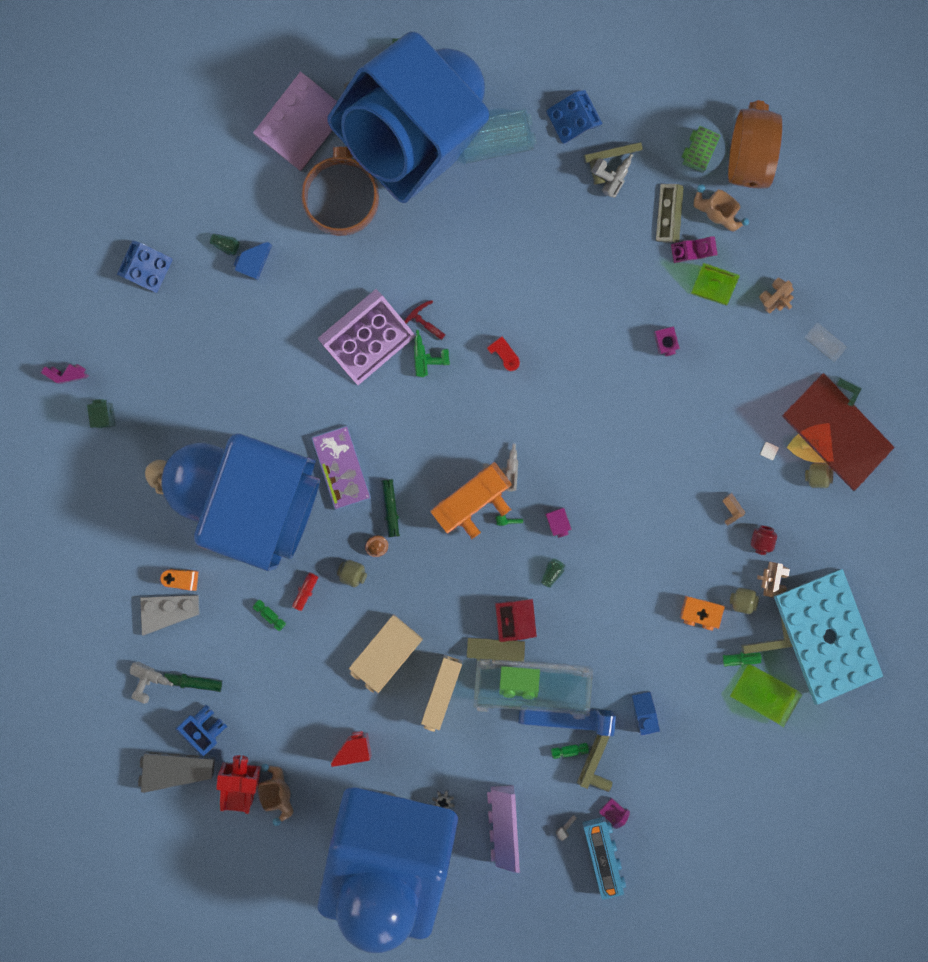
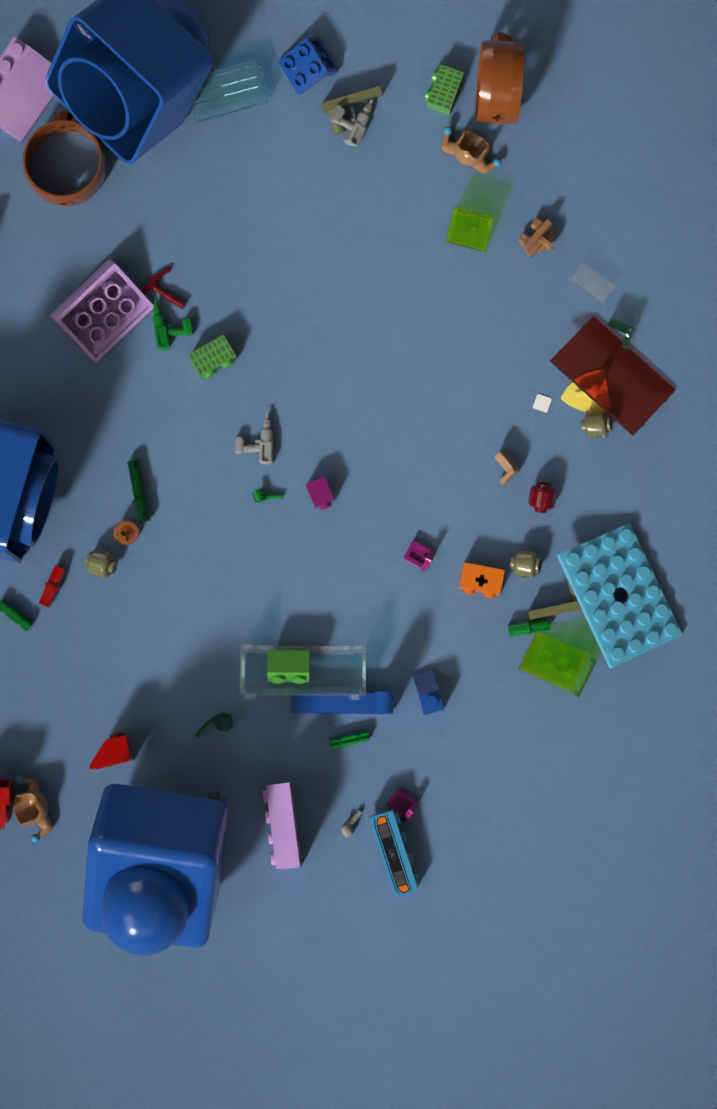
camera: 10 degrees left, 5 degrees down
(341, 467) = (83, 452): medium lavender tile -> none
(385, 654) = (142, 648): tan brick -> none
(441, 693) = (205, 684): tan brick -> none
(449, 724) = (215, 720): none -> clear green panel
(466, 388) = (212, 357): none -> bright green brick
(470, 498) = (224, 472): orange piece -> none
(495, 650) = (261, 635): olive slope -> none
(510, 359) = (251, 317): red leg -> none
(515, 620) = (280, 601): dark red slope -> none
(553, 571) = (317, 548): clear green cone -> none
(587, 774) = (370, 765): olive piece -> none
(646, 585) = (419, 555): none -> magenta tile
(669, 213) = (417, 159): olive slope -> none
(670, 333) = (422, 284): magenta brick -> none
(694, 249) = (445, 196): magenta slope -> none
(771, 579) = (553, 538): medium nougat hips -> none

